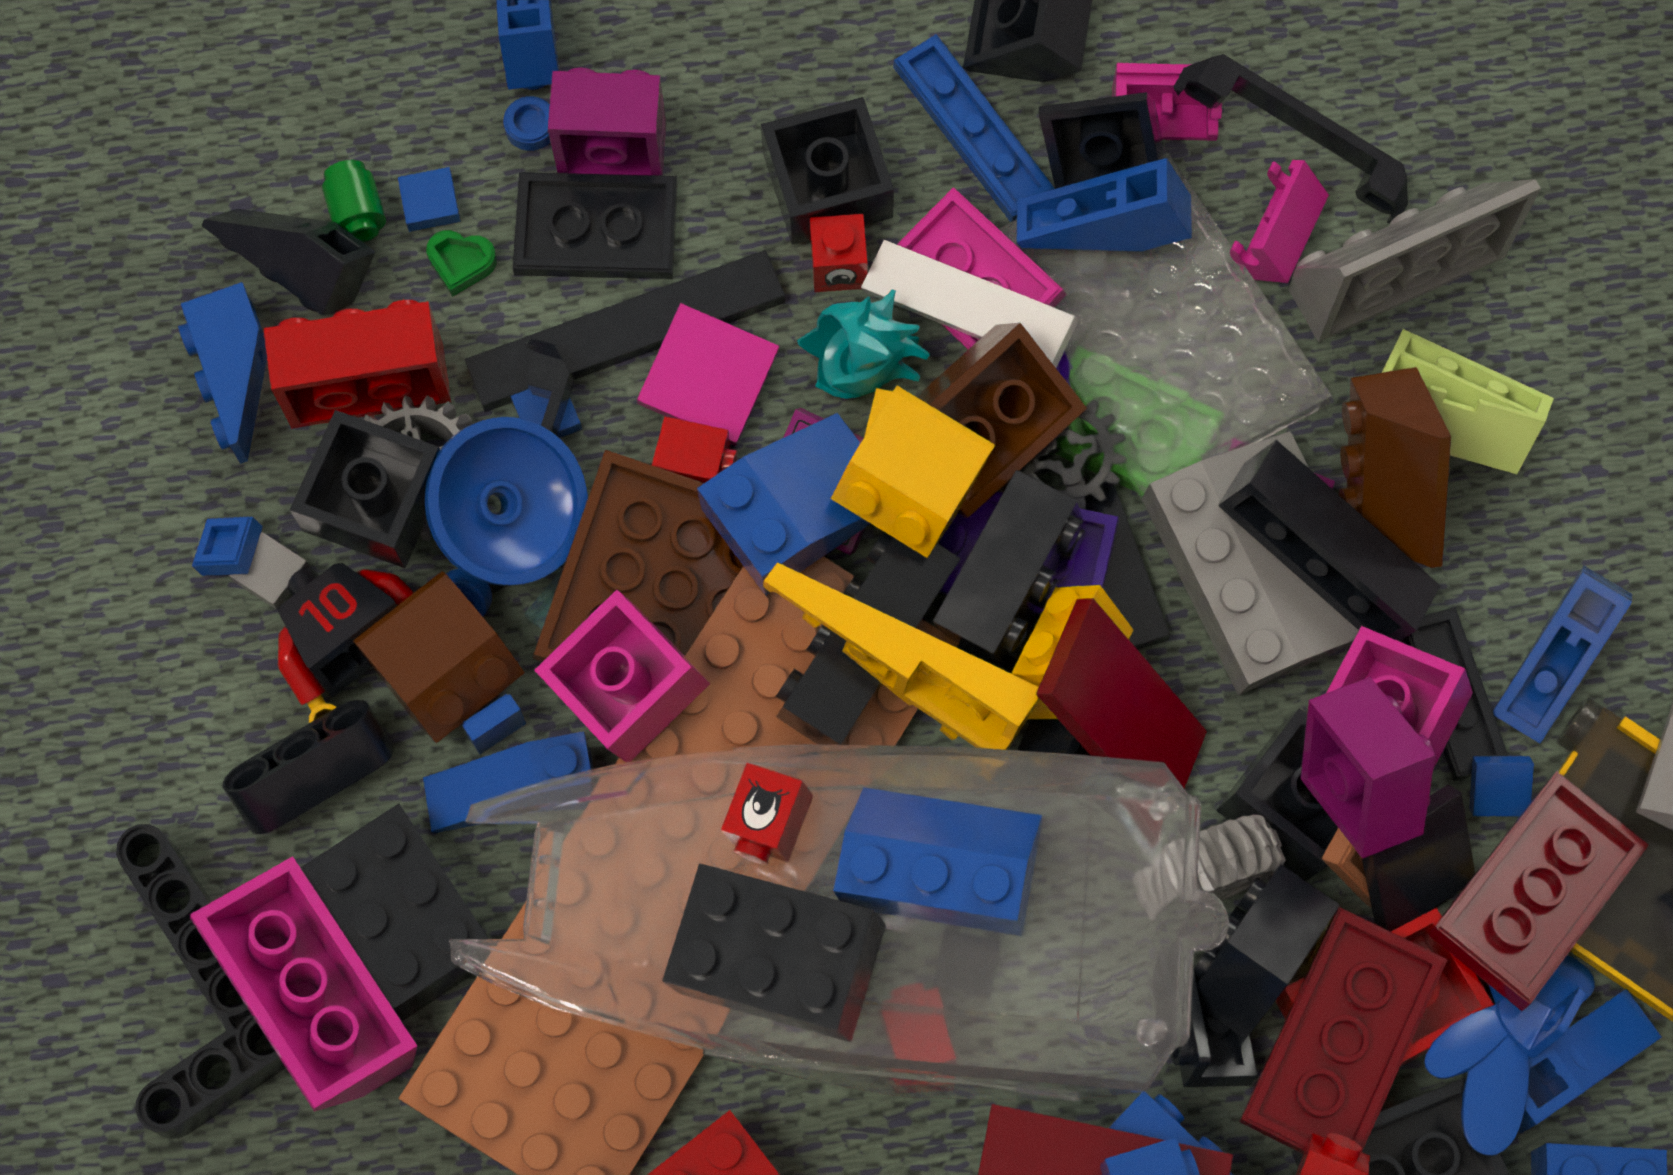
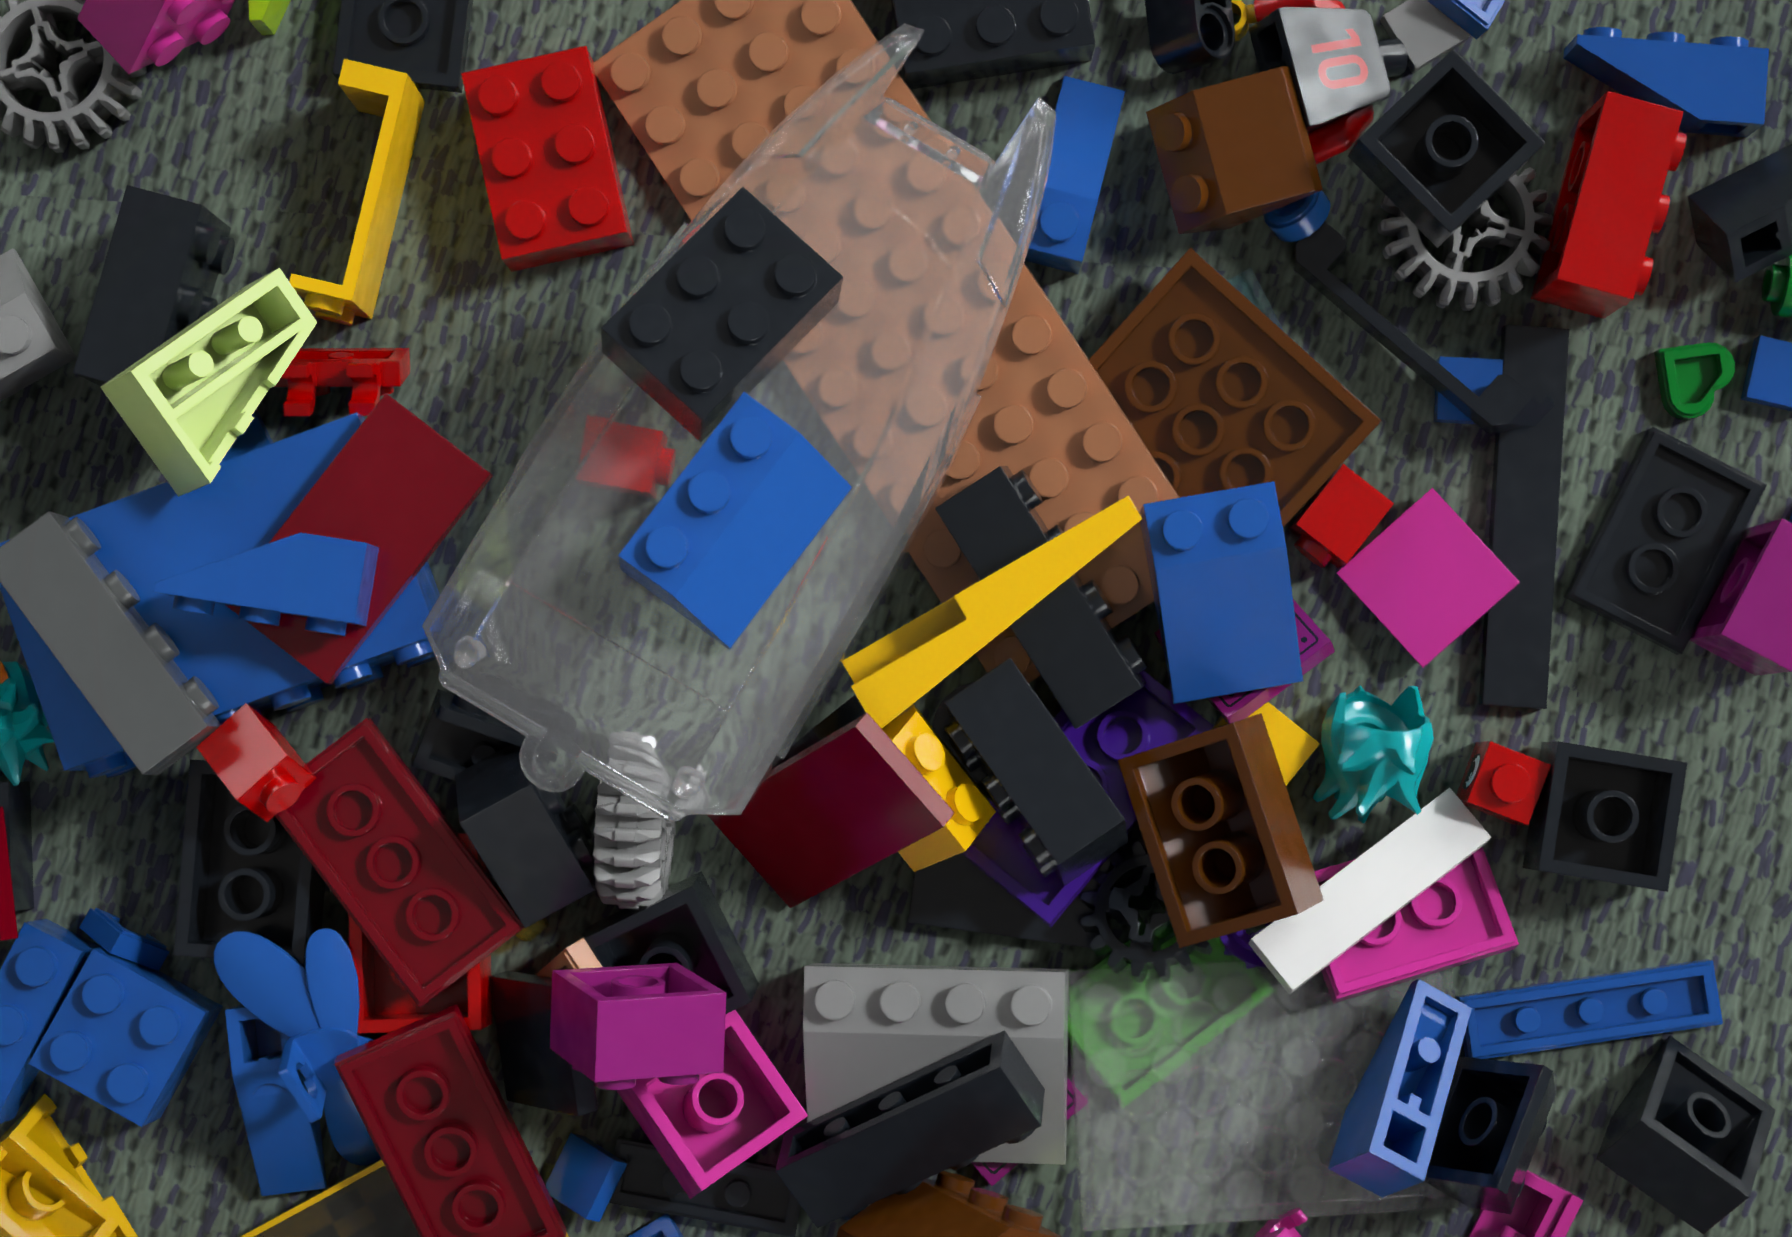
camera: 120 degrees right, 15 degrees up
(494, 723) = (1143, 182): blue tile -> none
(538, 494) = (1326, 295): blue dish -> none
(622, 677) = (1111, 317): dark pink brick -> none
(766, 814) = (869, 374): red brick -> none
(912, 471) = (1179, 712): yellow slope -> none

